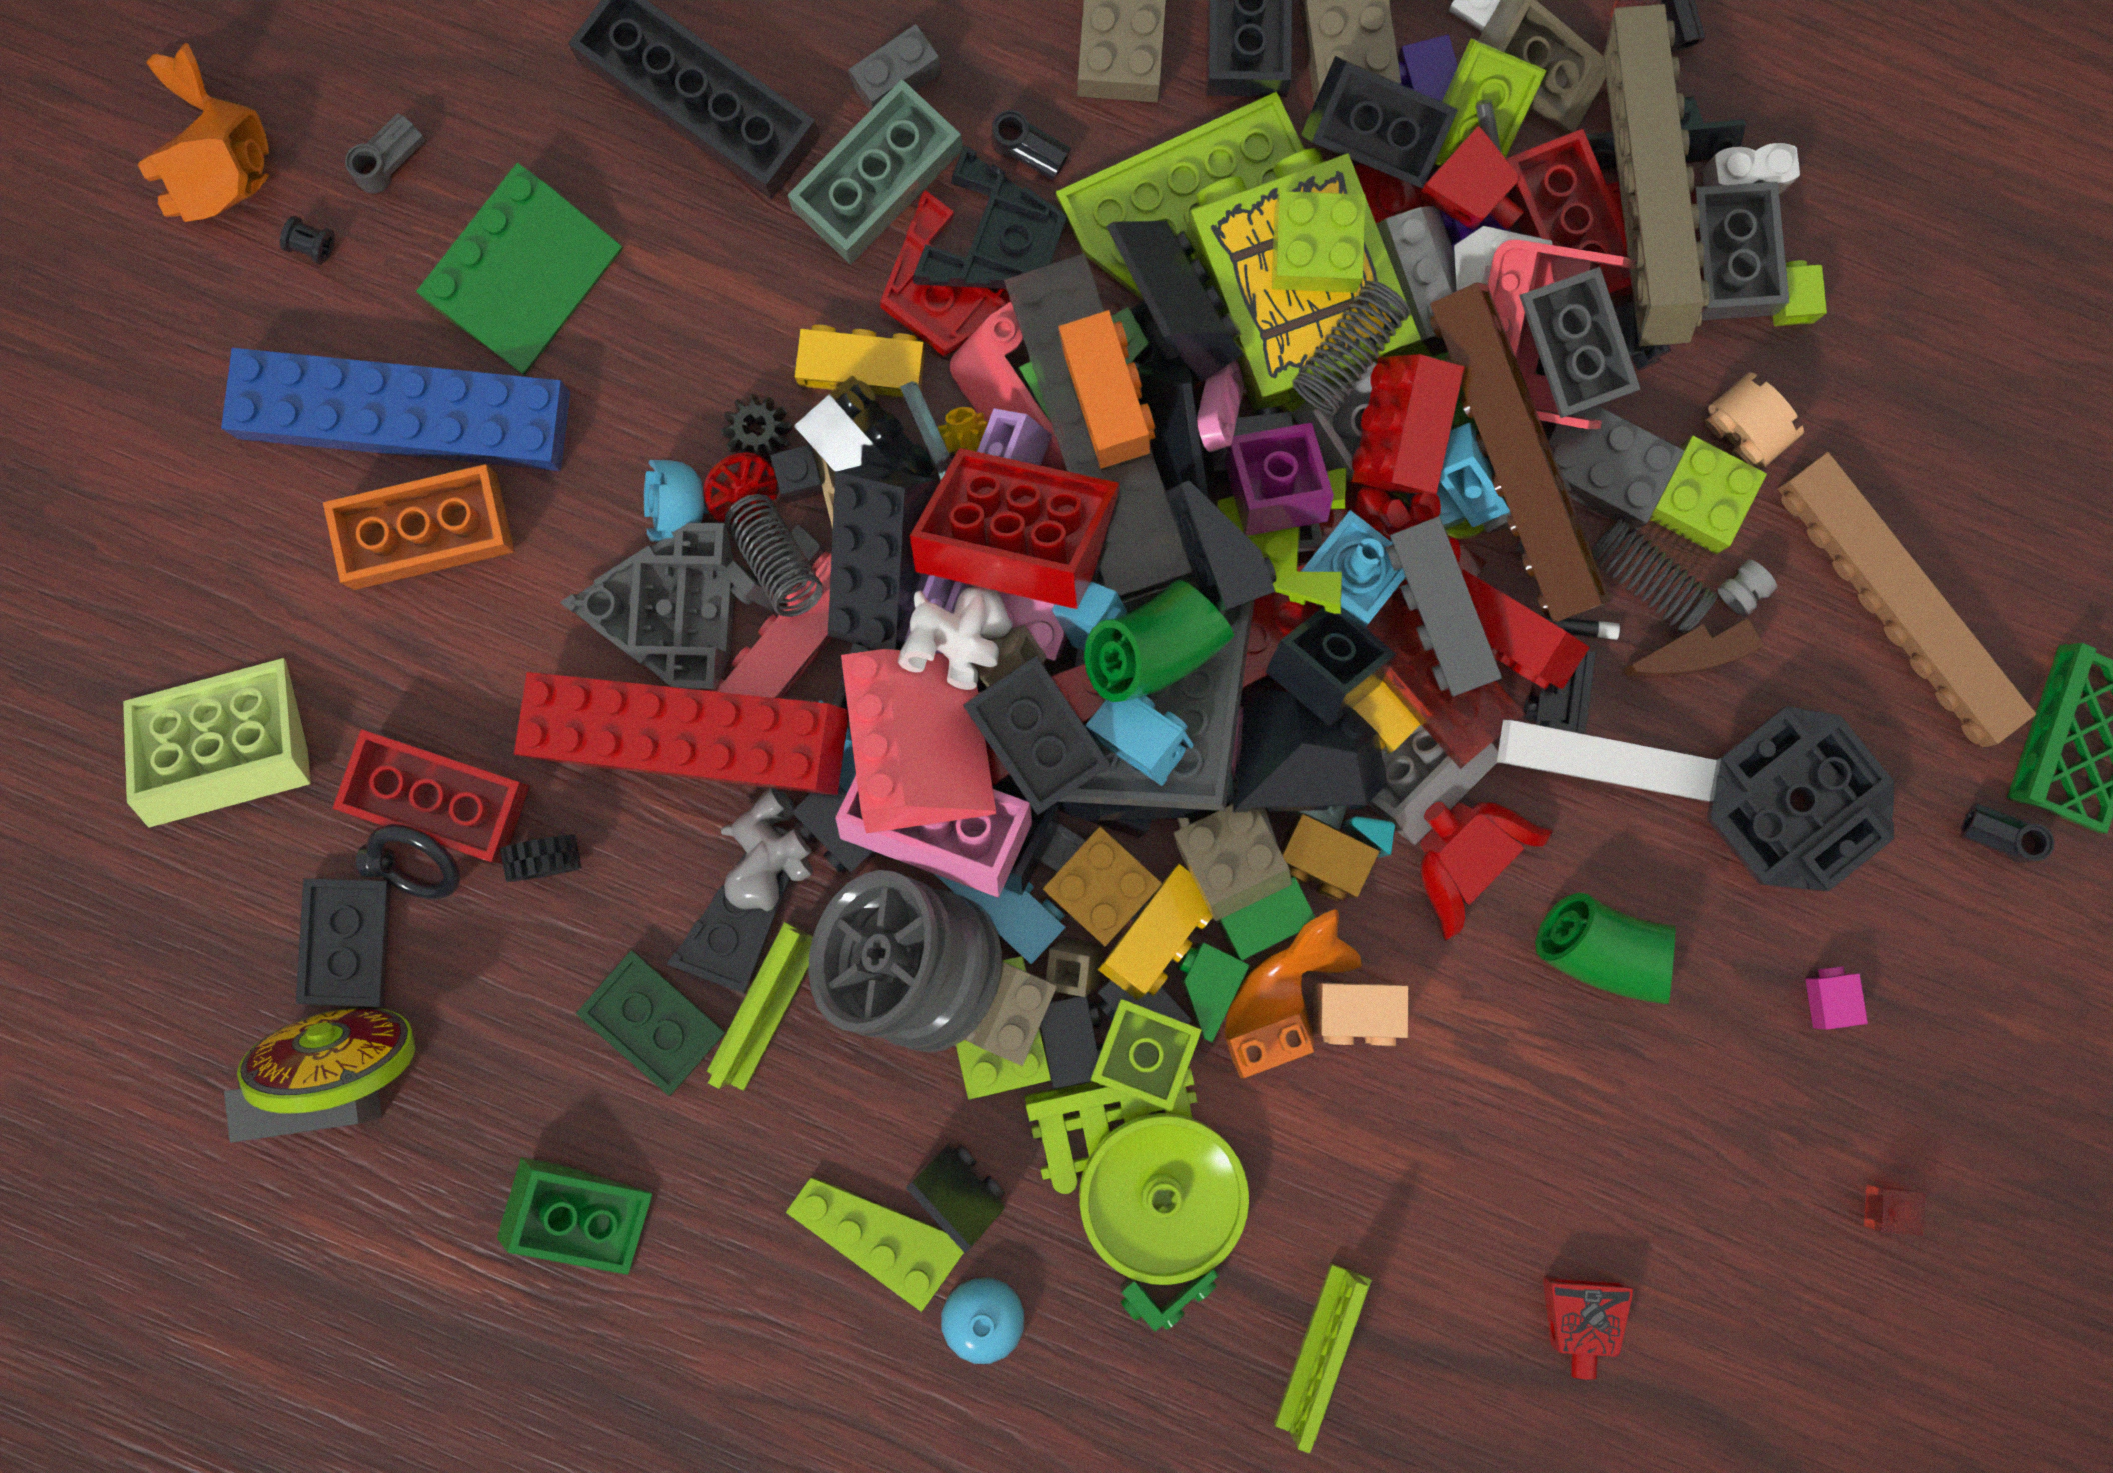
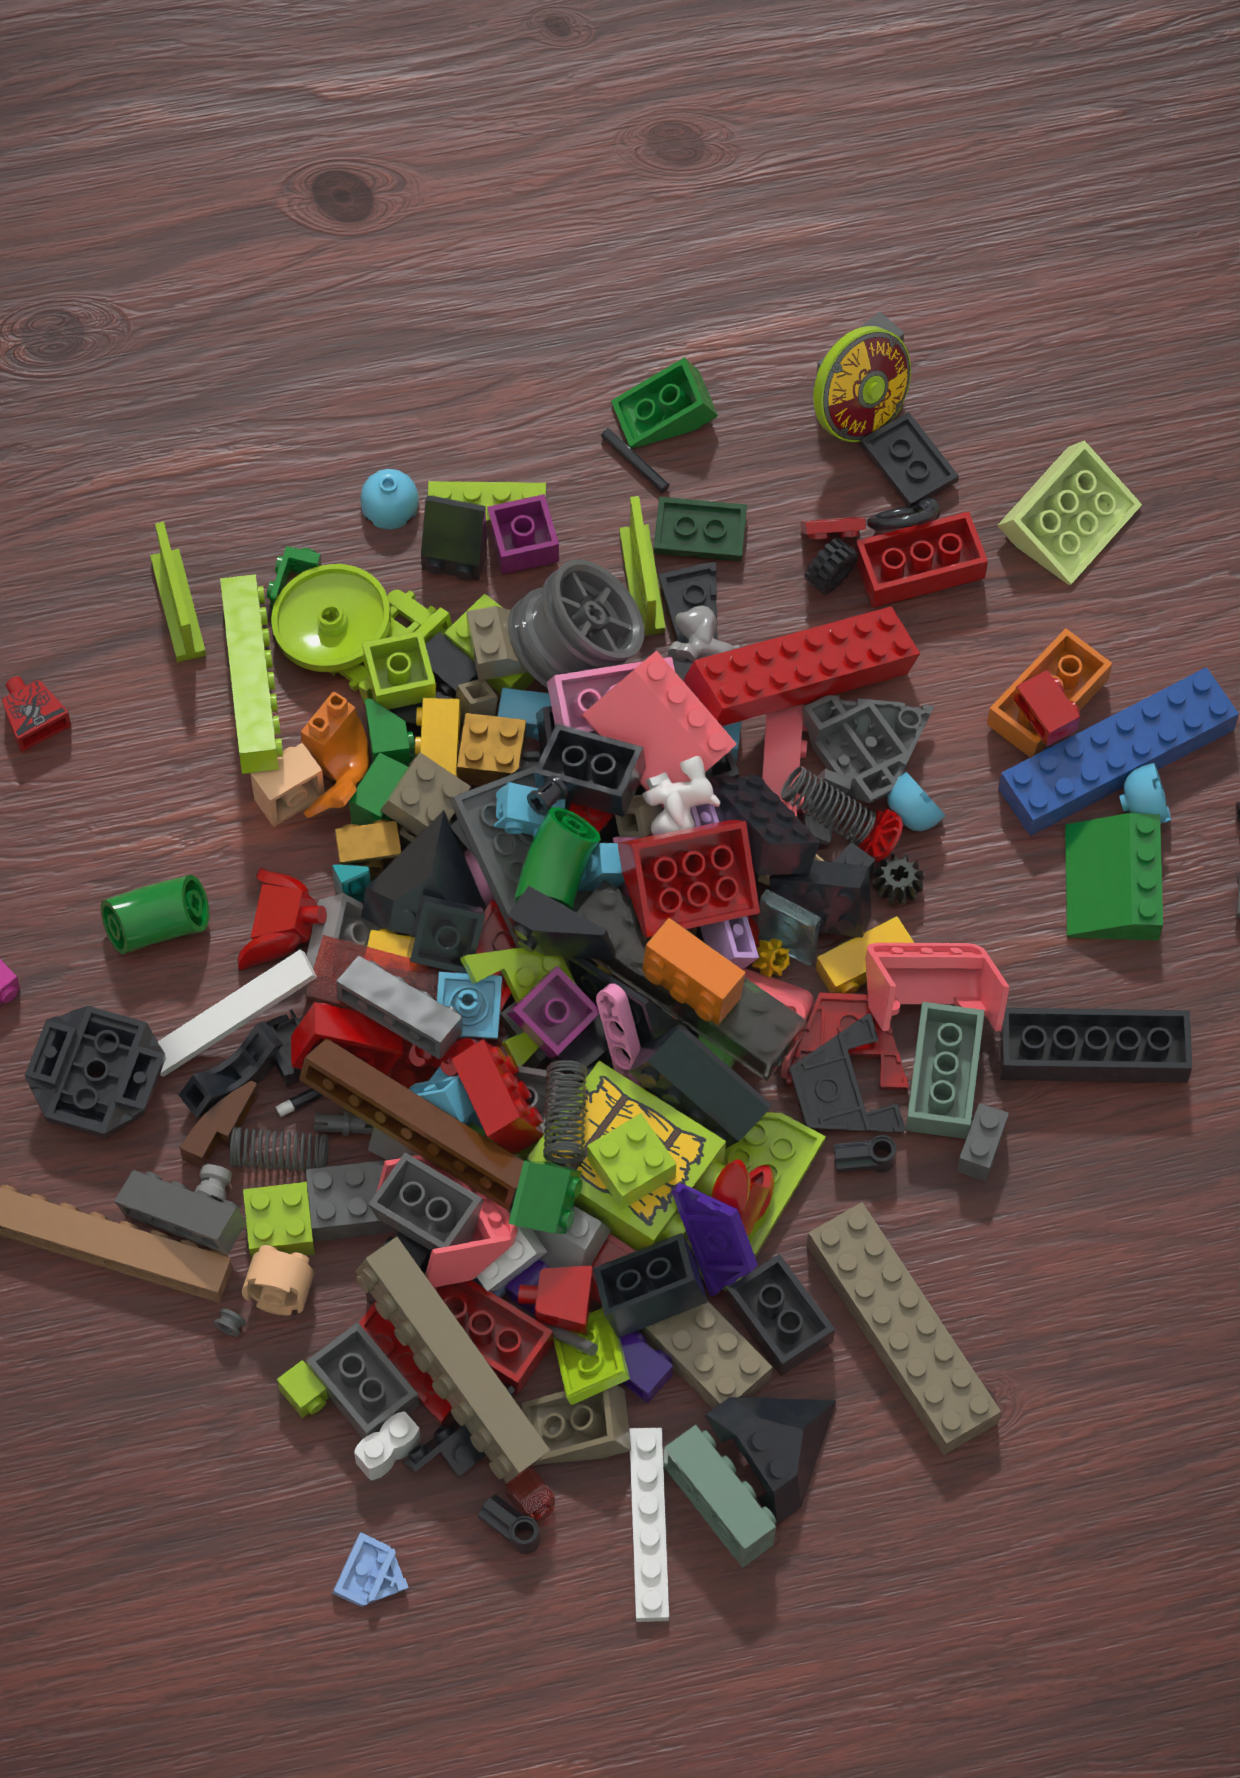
camera: 145 degrees right, 20 degrees down
(412, 331) = (1145, 793): none -> medium azure cylinder
(441, 487) = (1047, 707): none -> red brick
(500, 908) = (844, 526): none -> red plate
(658, 1172) = (636, 461): none -> black bar
(805, 288) = (933, 974): none -> coral windscreen
(864, 1154) = (523, 534): none -> magenta brick
(1116, 723) = (547, 795): none -> black bush
(1208, 155) = (745, 1191): none -> red torso
(1277, 115) = (715, 1237): none -> dark purple wing
(1317, 1178) = (249, 674): none -> lime brick
(1439, 264) = (546, 1197): none -> green slope
(1652, 698) = (246, 1064): none -> black arch
(1811, 569) = (181, 1211): none -> dark grey brick
(1827, 421) = (229, 1322): none -> dark grey bush
(1850, 62) = (369, 1573): none -> light blue slope

